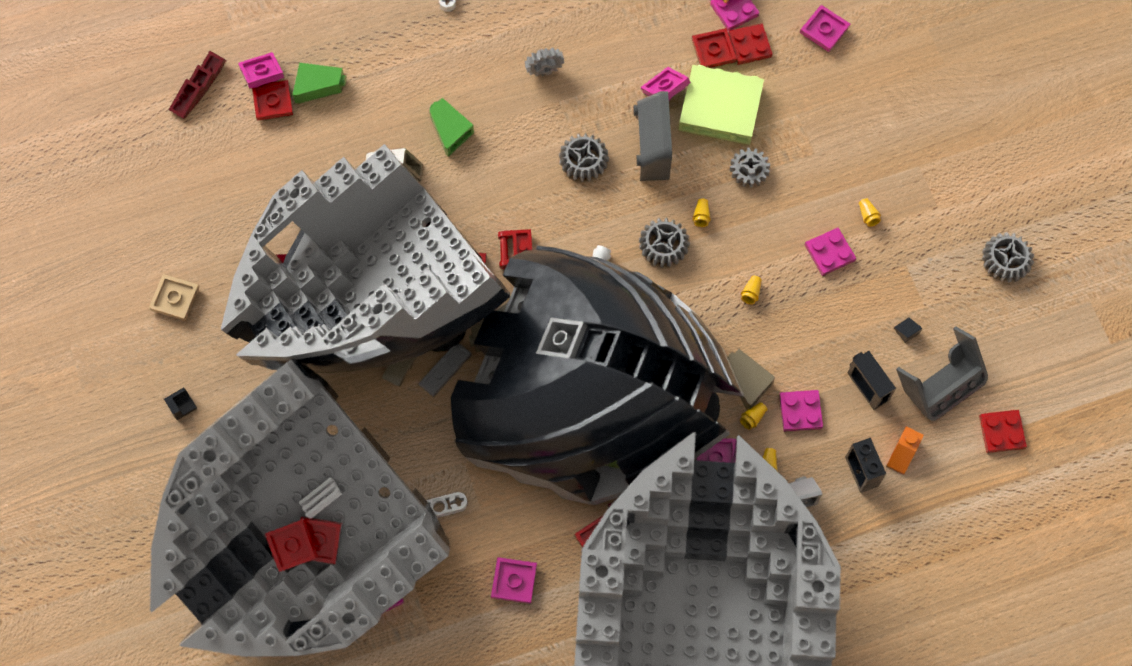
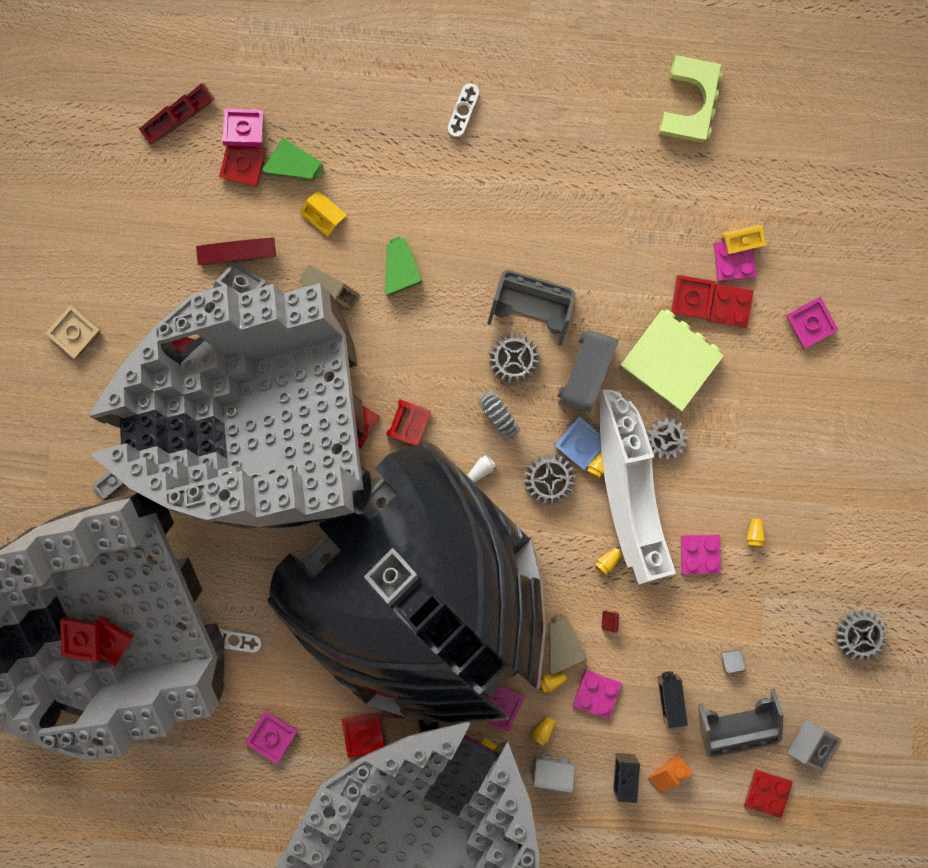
camera: 25 degrees right, 20 degrees up
(180, 403) = (40, 441): black panel -> none
(309, 162) = (236, 251): none -> dark red slope
(319, 495) = (107, 611): white tile -> none
(360, 112) = (322, 213): none -> yellow panel
(544, 62) = (519, 243): light grey gear -> none
(580, 105) = (534, 298): none -> dark grey windscreen
(593, 204) = (498, 415): none -> light grey gear
(666, 80) = (626, 318): dark pink plate -> none
(677, 202) = (580, 443): none -> medium blue plate
(740, 219) = (631, 488): none -> white slope
(780, 340) = (610, 621): none -> dark red slope
(1020, 368) = (814, 745): none -> light grey slope

